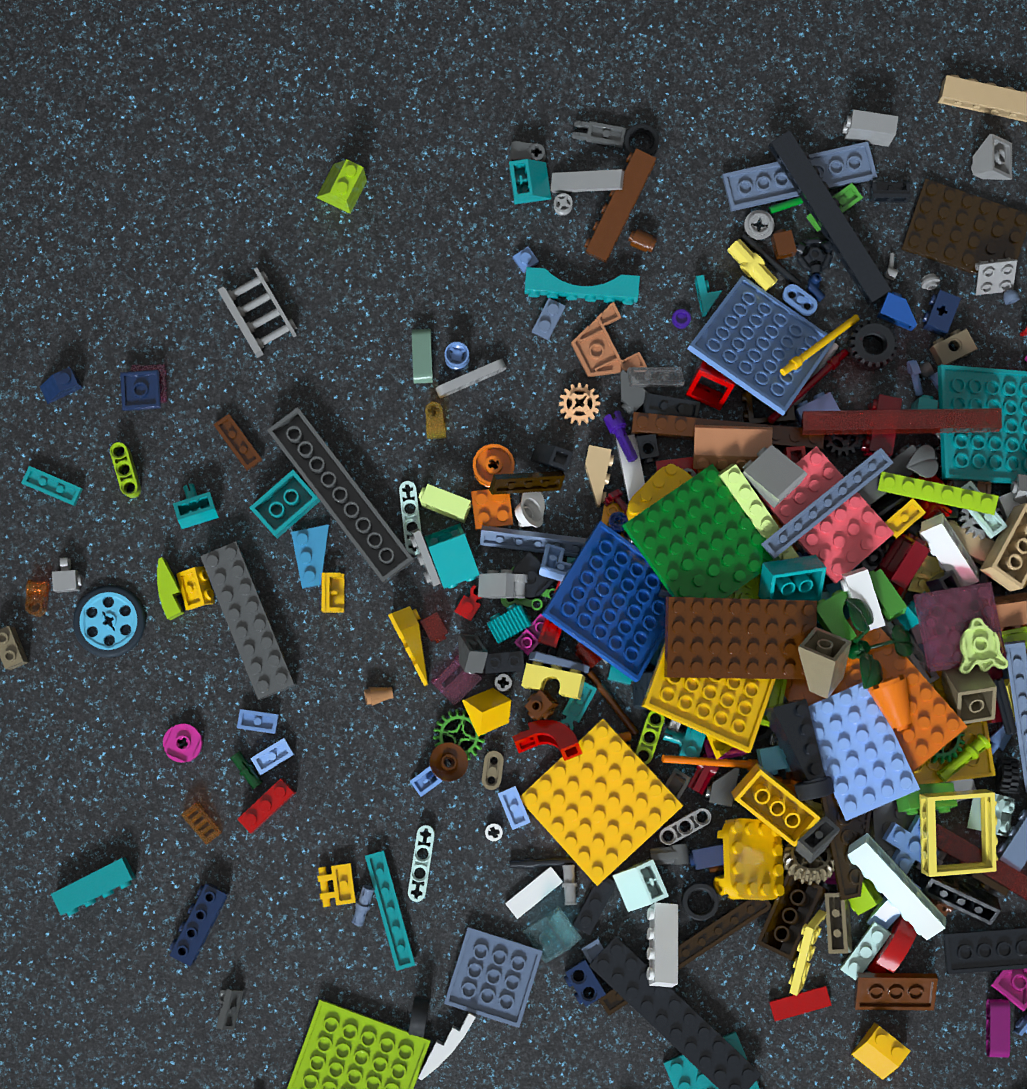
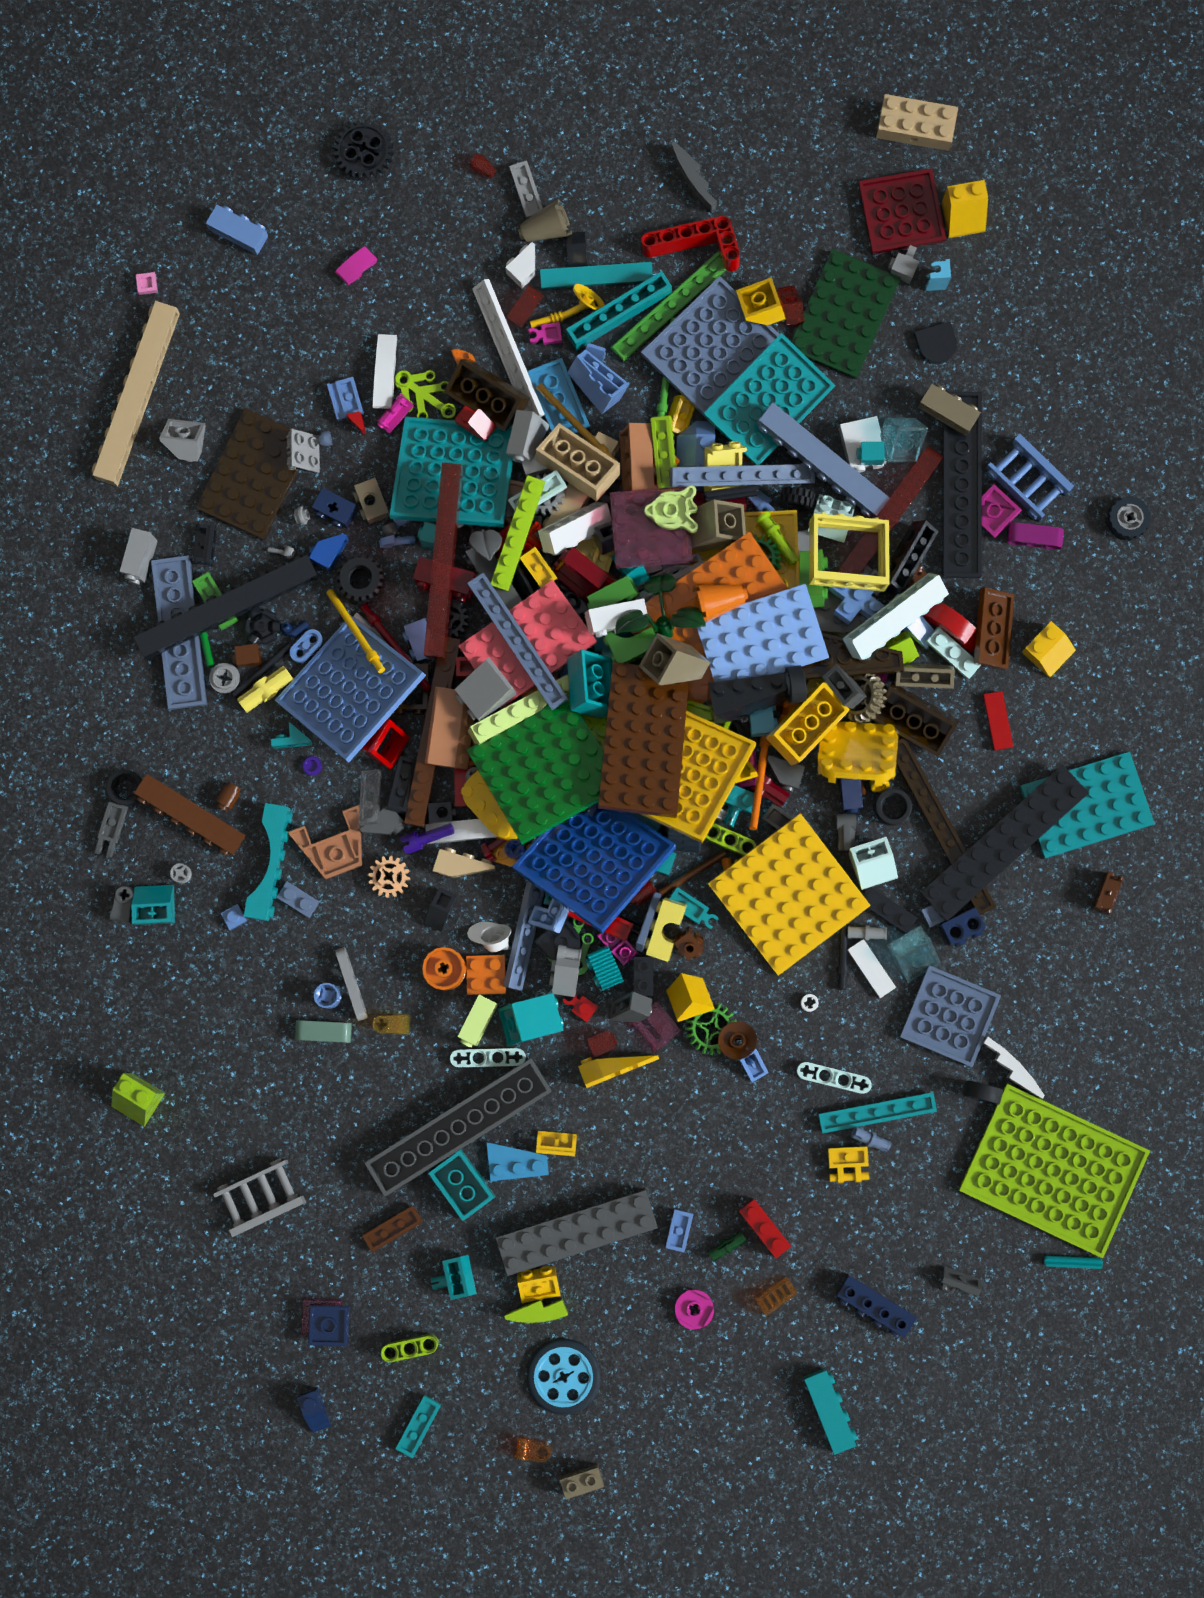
camera: 80 degrees left, 0 degrees up
(66, 579) = (516, 1418): light grey brick -> none
(272, 756) = (715, 1218): light blue plate -> none
(376, 695) = (663, 1107): medium nougat cone -> none
(424, 557) = (530, 1047): light grey plate -> none
(492, 770) = (748, 998): dark tan plate -> none
(498, 686) = (657, 982): light grey bush -> none
(514, 807) = (787, 980): light blue plate -> none
(527, 482) = (465, 936): dark brown plate -> none
(550, 733) = (717, 938): red arch -> none
(587, 181) = (160, 846): light grey tile -> none
(663, 945) = (932, 846): white brick -> none
(694, 824) = (819, 824): light grey beam -> none
(806, 950) = (949, 709): light yellow wing -> none
(988, 883) = (899, 528): dark brown plate -> none

